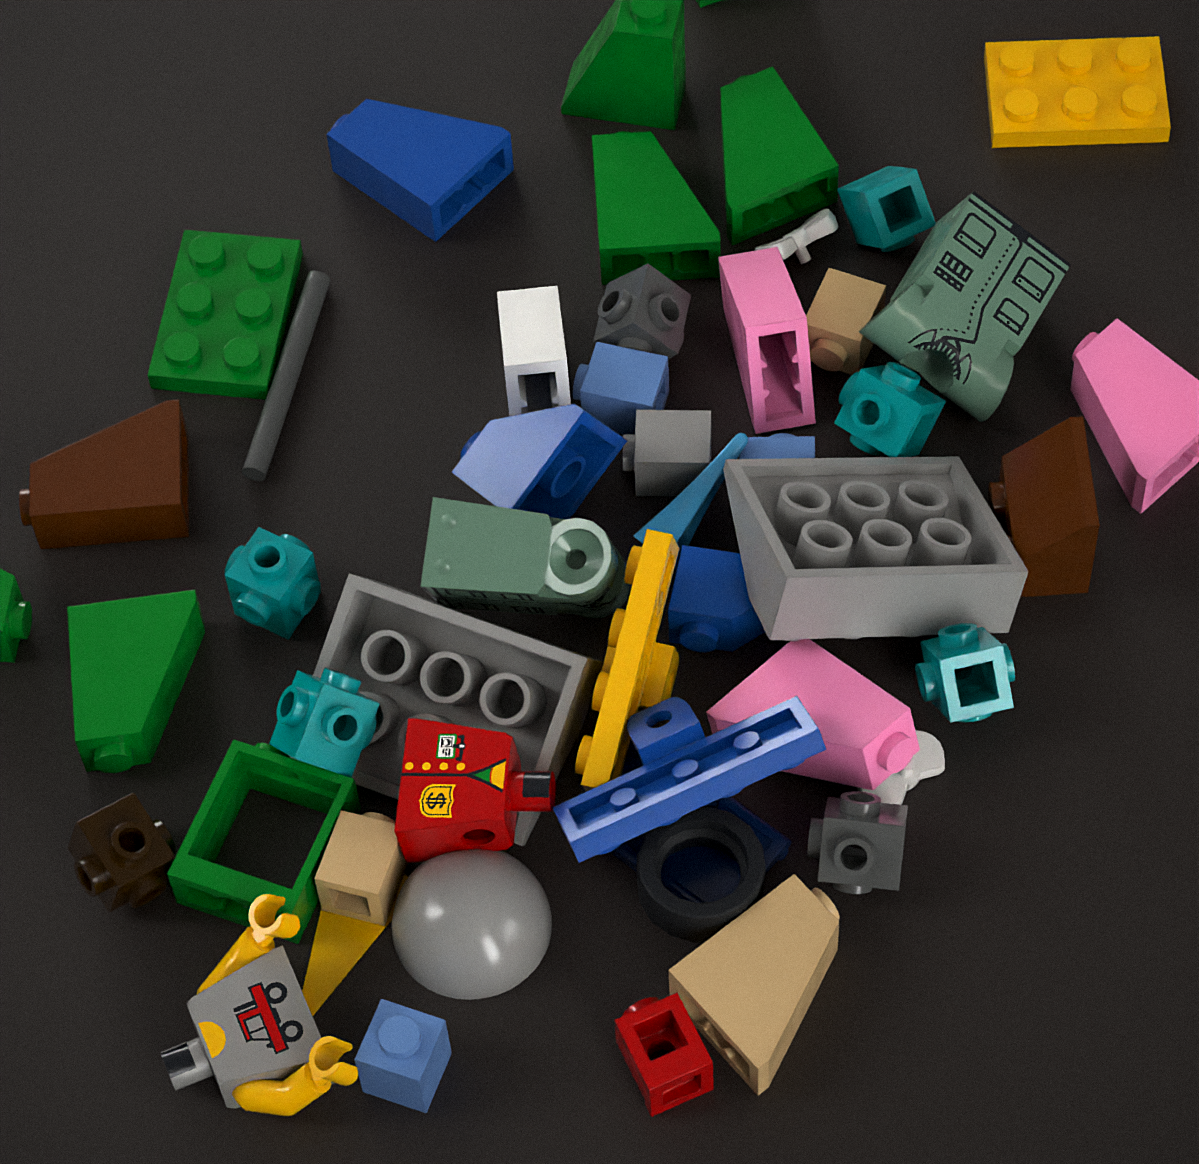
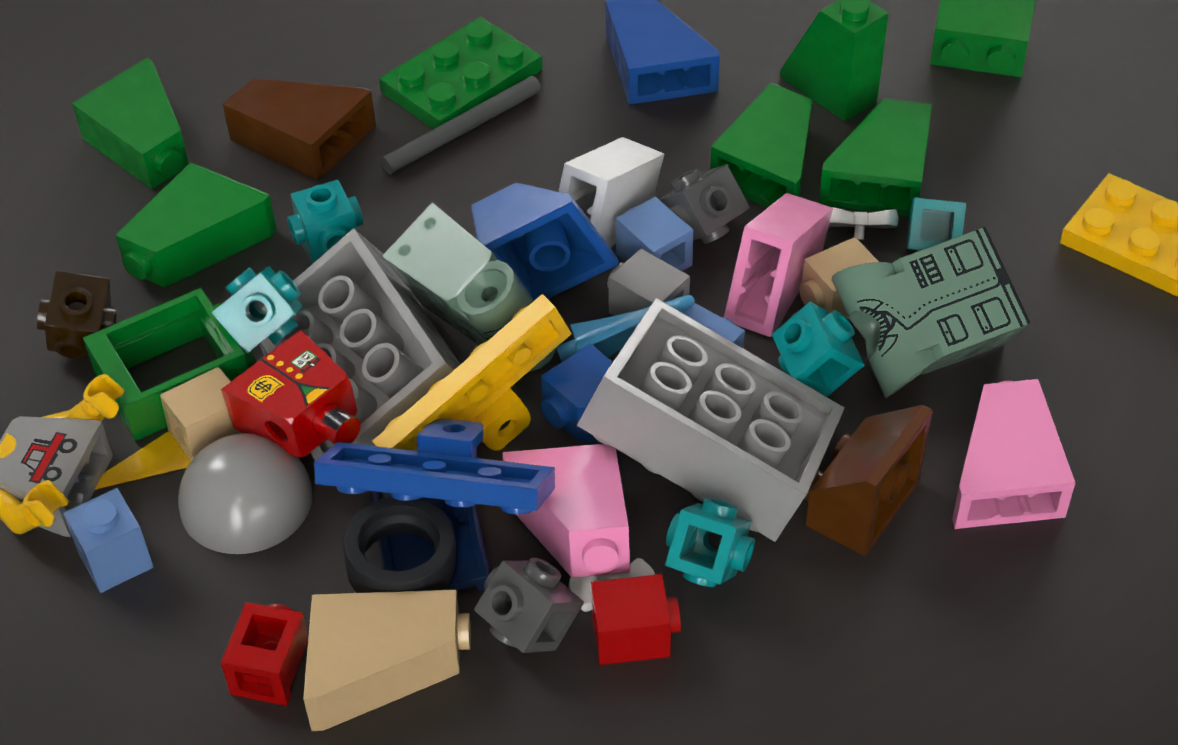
camera: 35 degrees right, 10 degrees down
(957, 792) = (633, 619): none -> red brick

